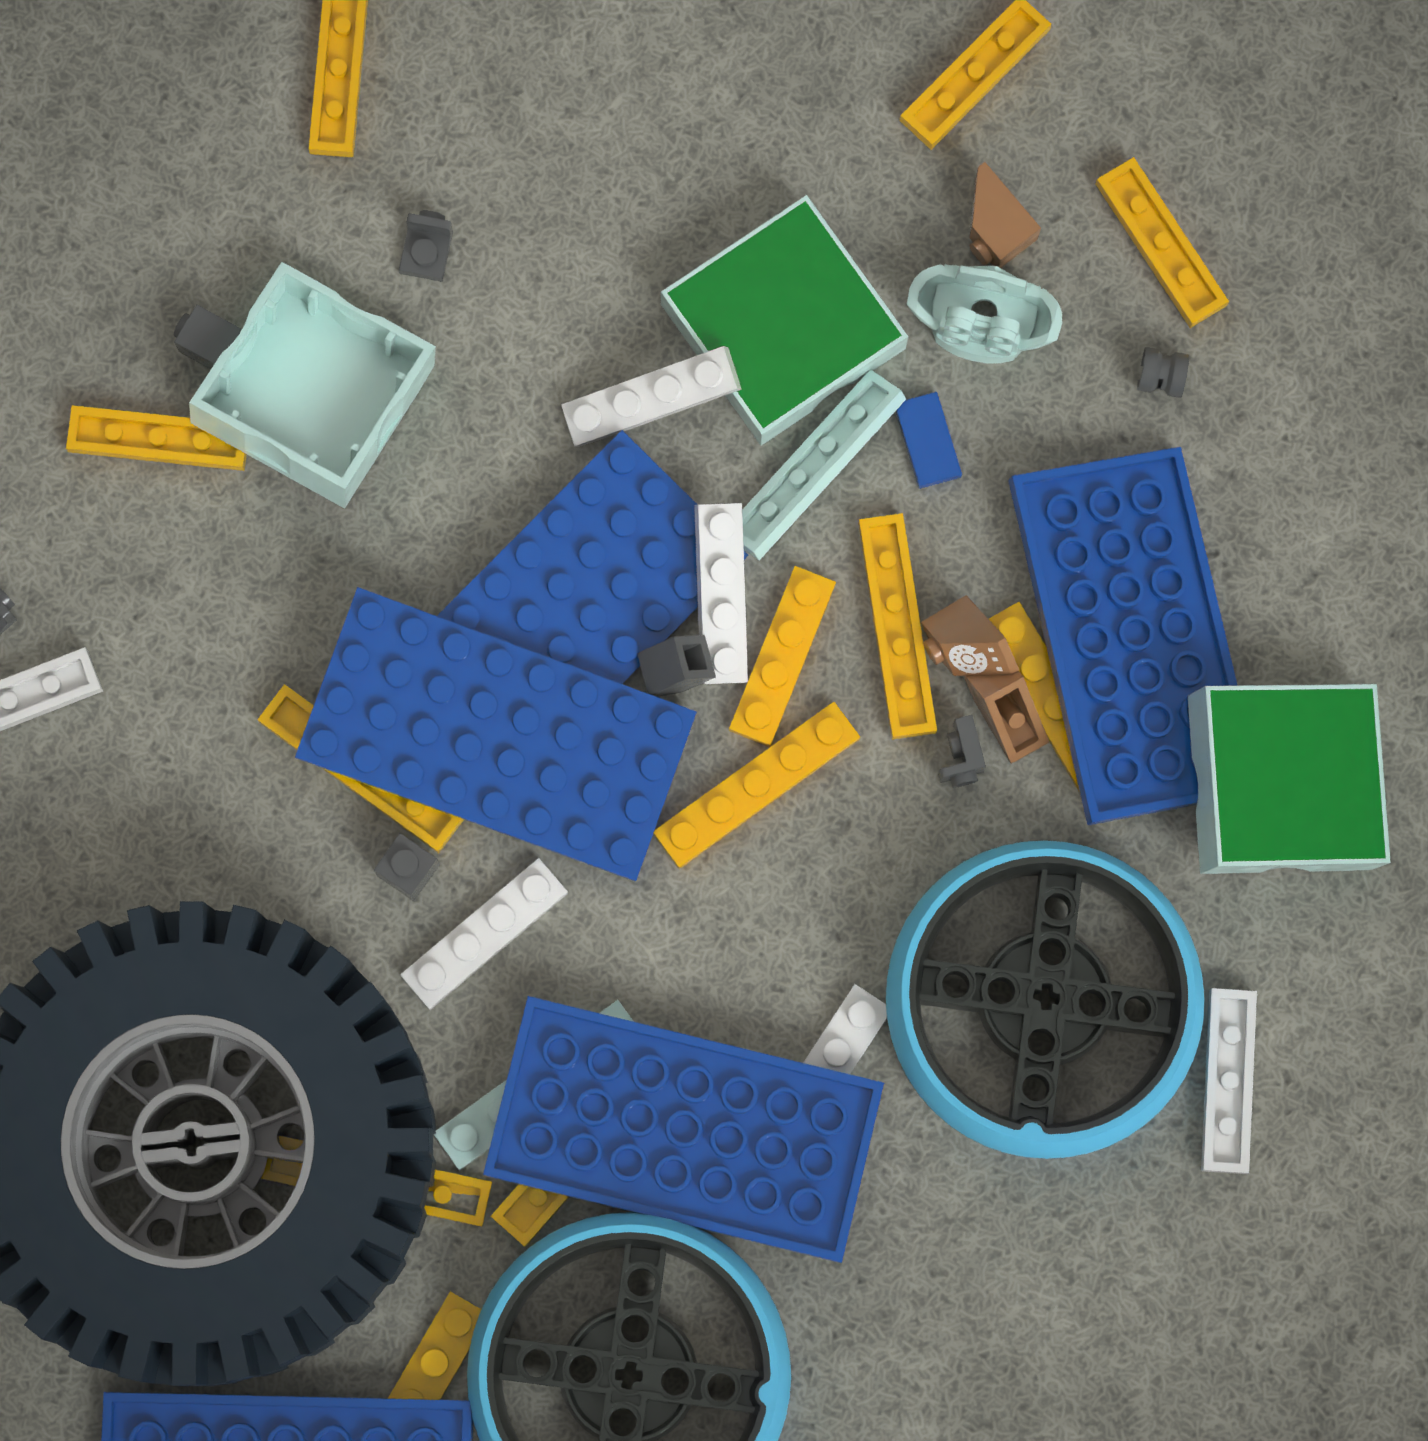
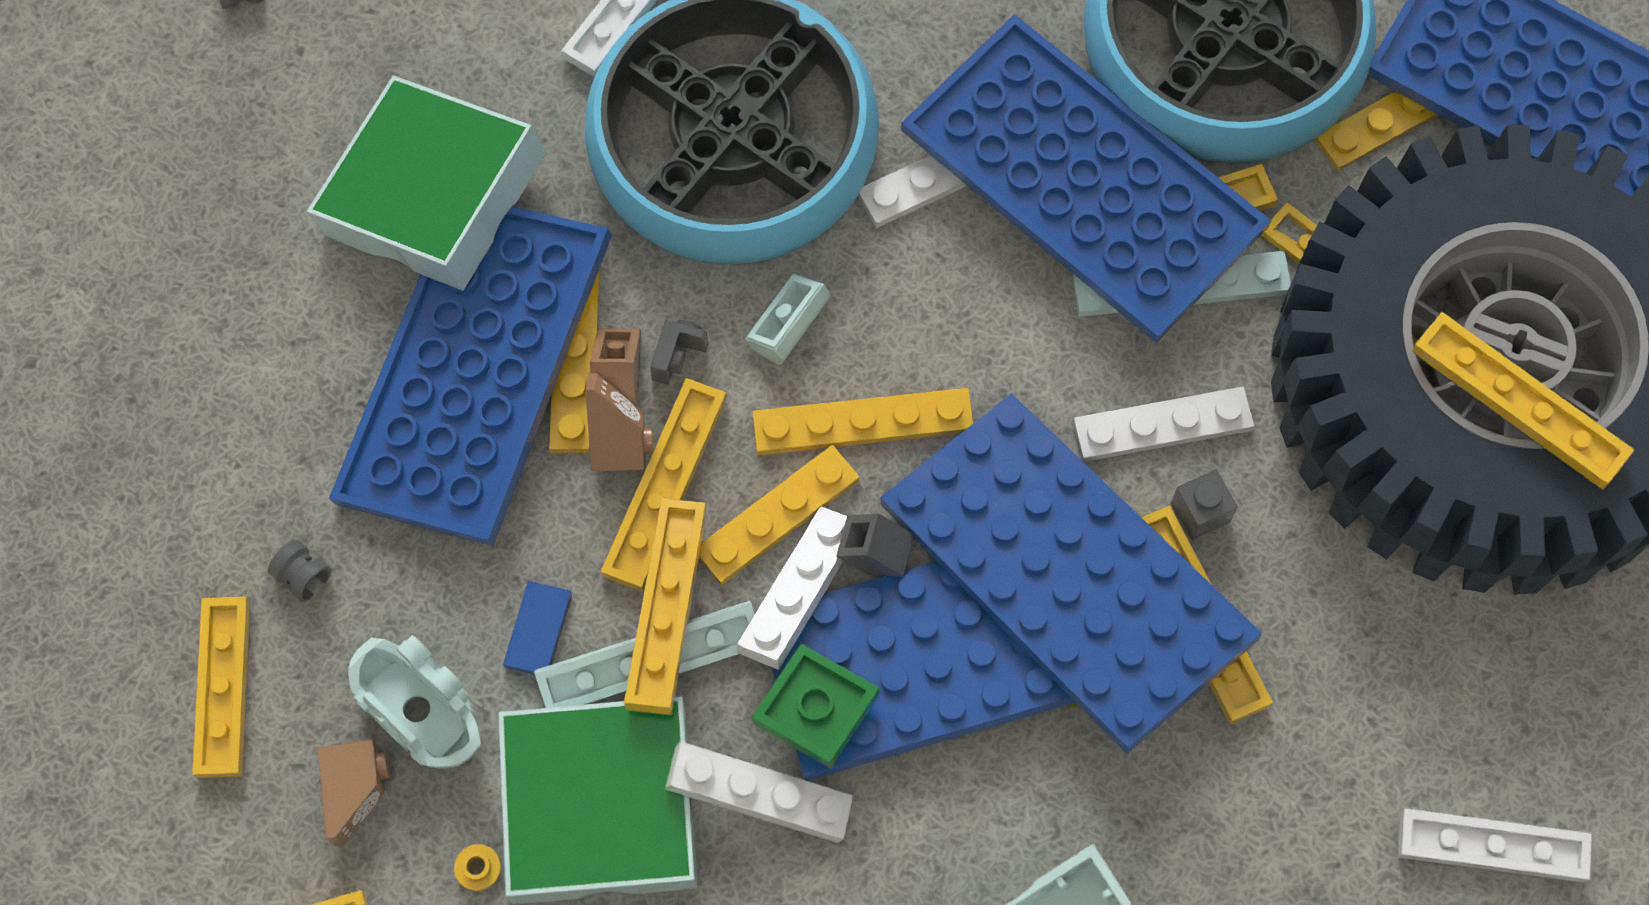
camera: 145 degrees left, 10 degrees down
(161, 1060) = (1522, 400): none -> yellow plate
(643, 485) = (815, 706): none -> green plate
(822, 503) = (665, 607): none -> yellow plate
(847, 230) = (483, 880): none -> yellow plate
(880, 842) = (787, 318): none -> light aqua brick

